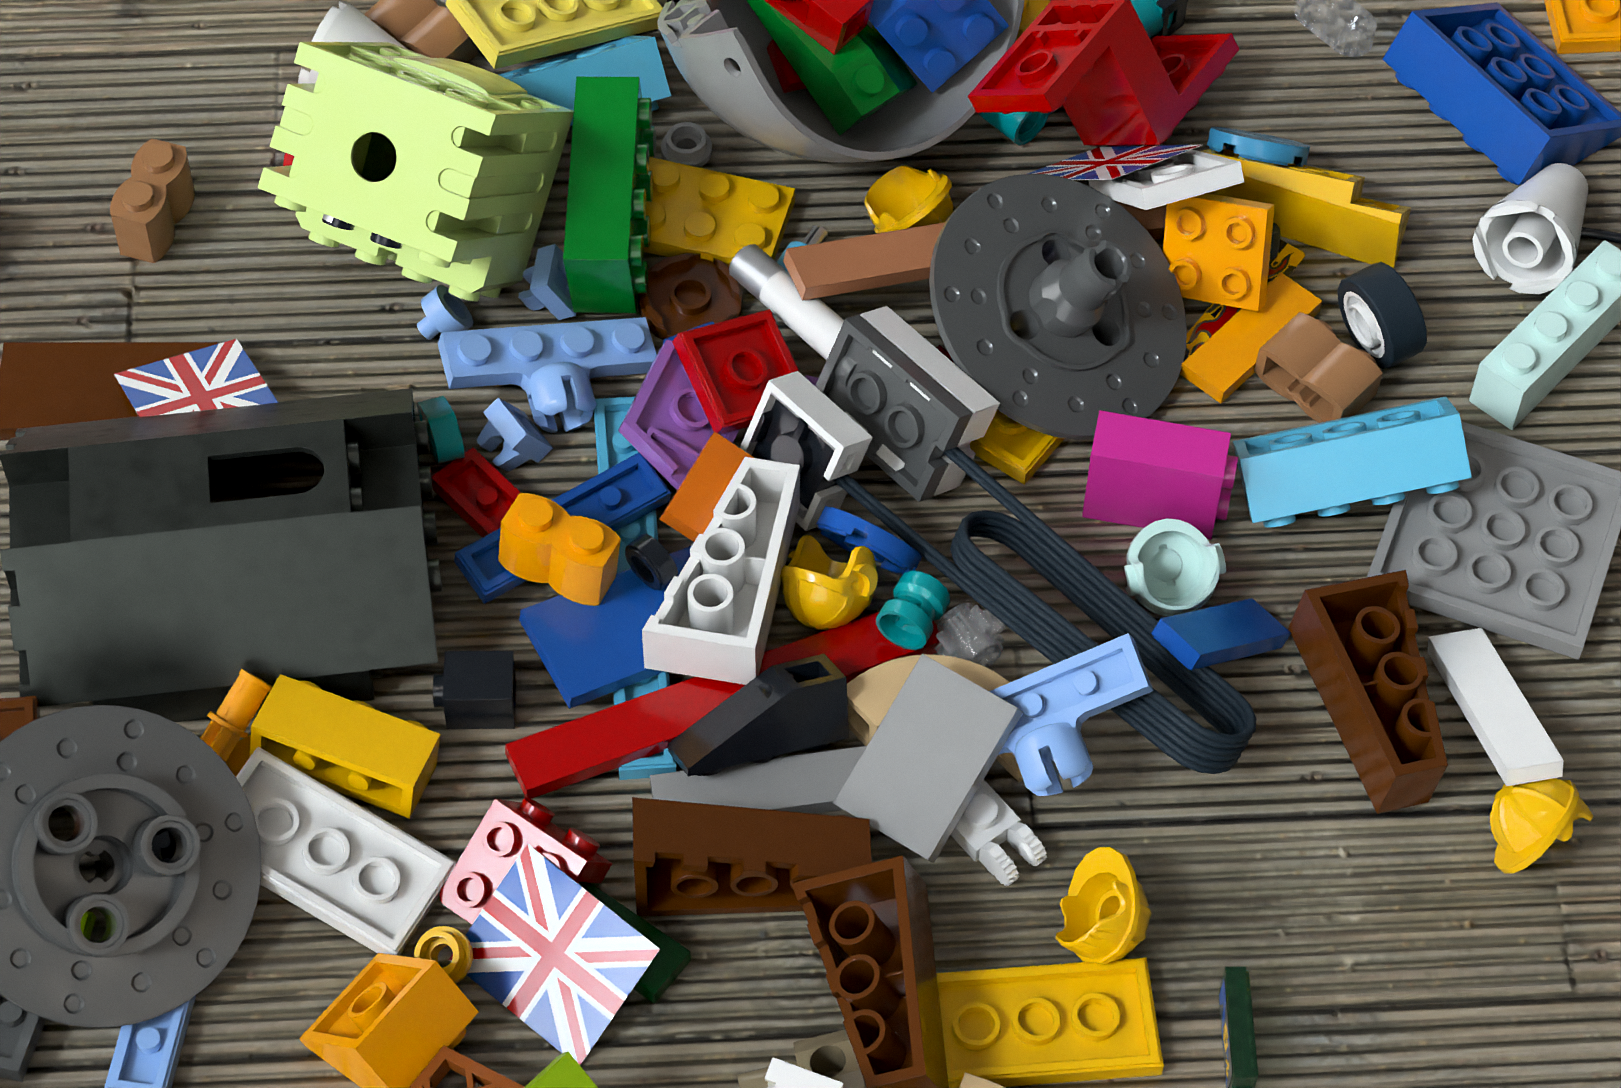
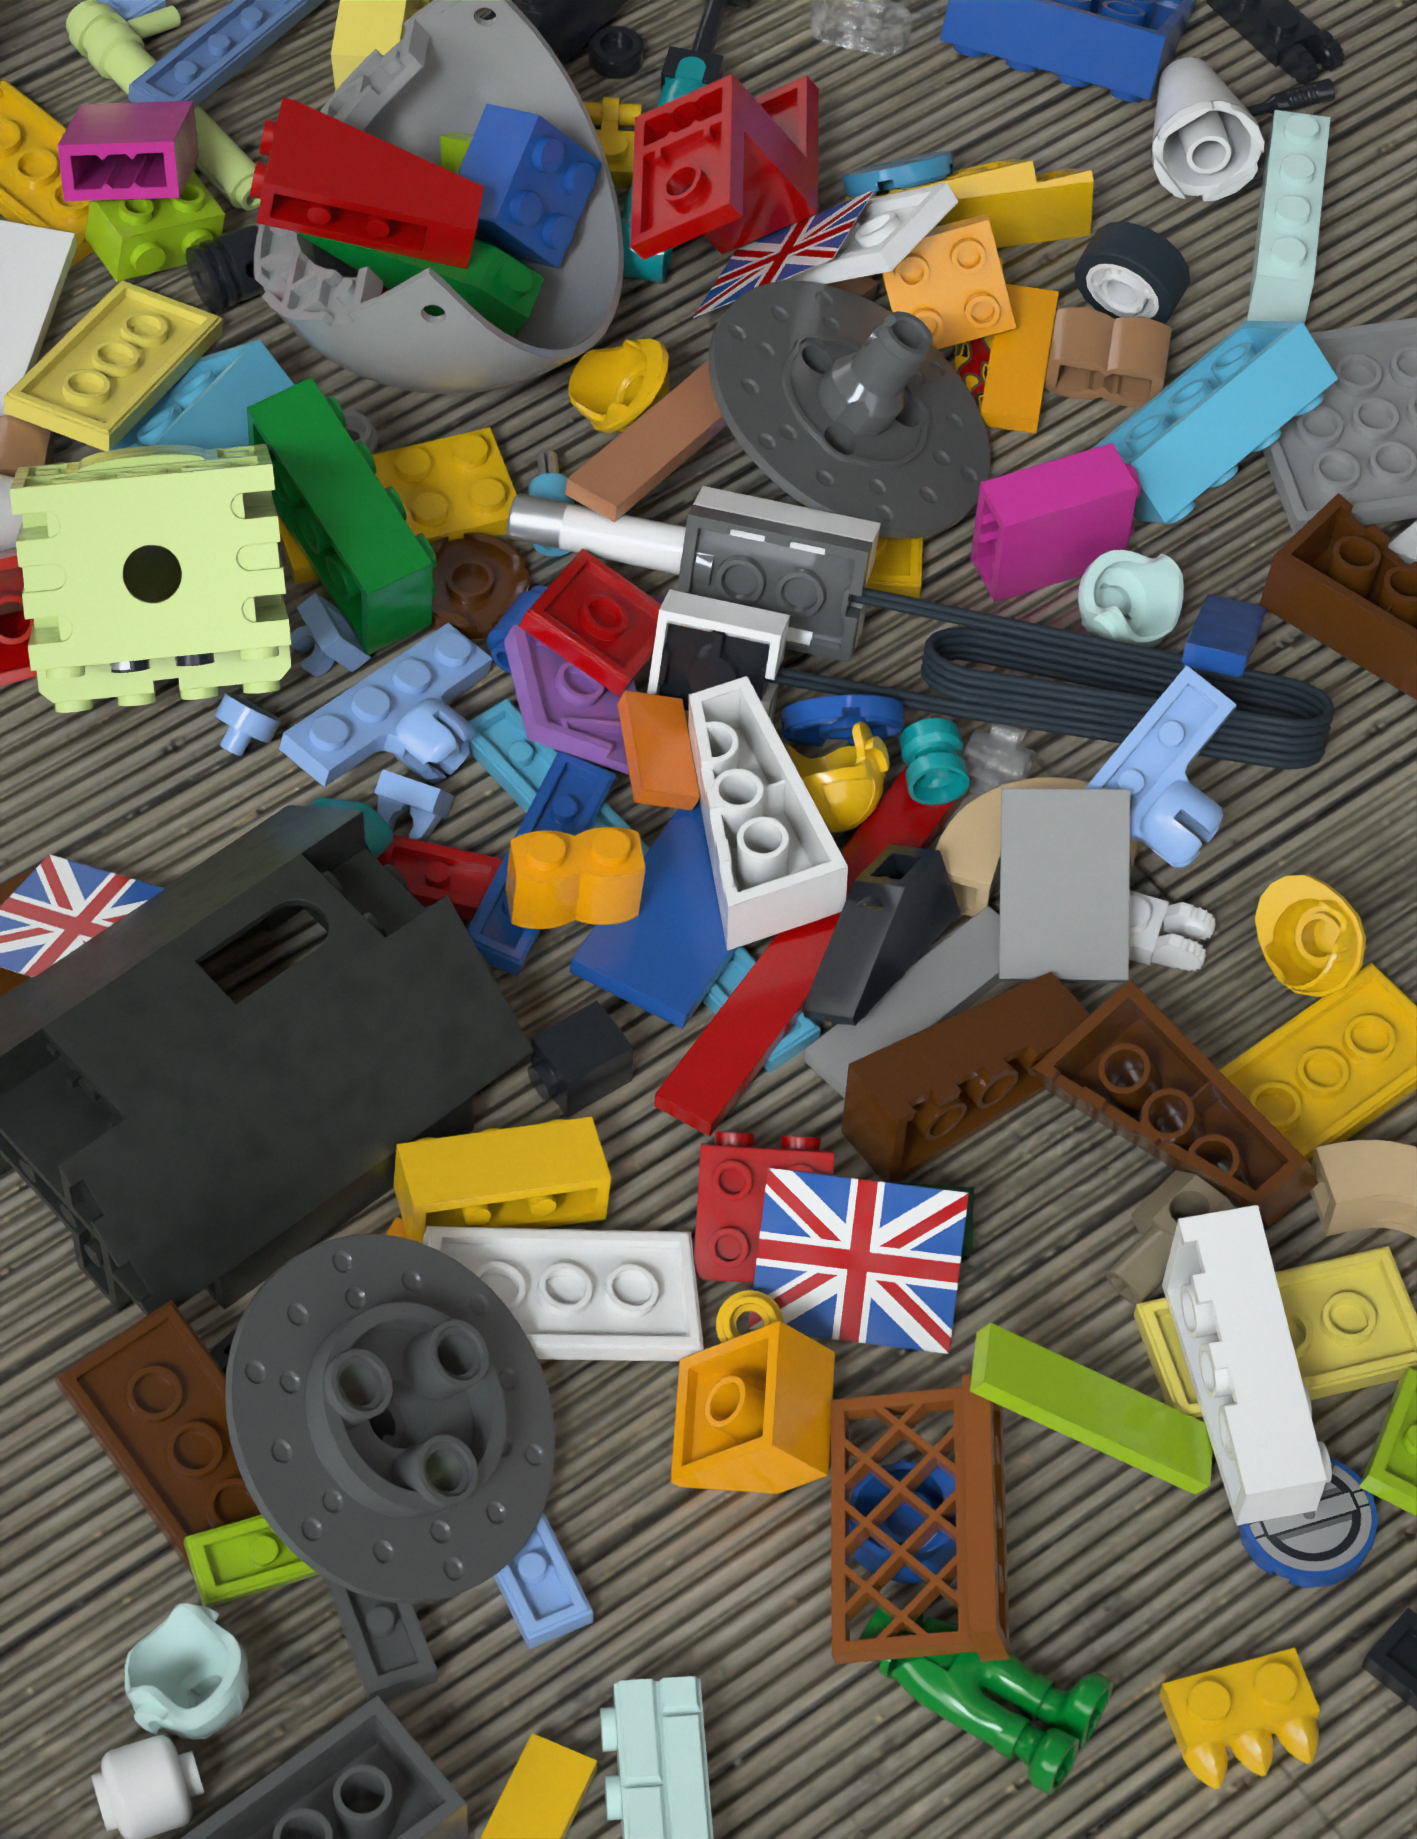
camera: 35 degrees left, 0 degrees up
(235, 714) = (377, 1197): light orange axle -> none
(650, 562) = (666, 844): black tile -> none

